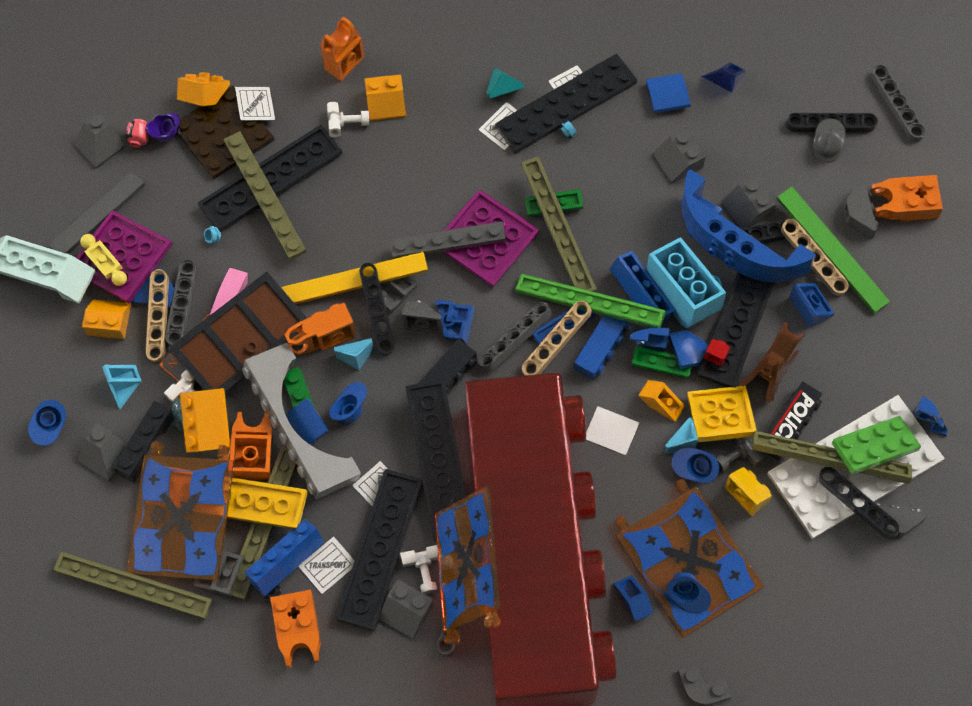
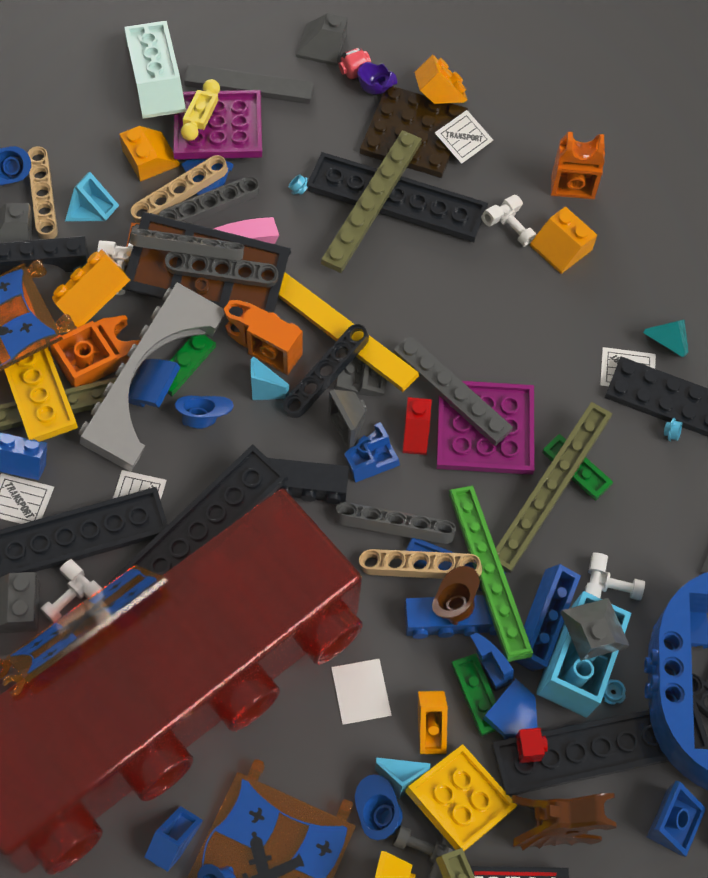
camera: 50 degrees right, 5 degrees down
(95, 411) = (42, 201): none -> tan beam
(218, 335) = (186, 244): none -> dark grey beam
(248, 334) = (231, 276): none -> dark grey beam
(456, 279) = (417, 426): none -> red slope
(596, 328) = (457, 594): none -> reddish brown piece
(639, 241) = (601, 580): none -> white bar
(678, 264) = (594, 629): none -> dark grey slope

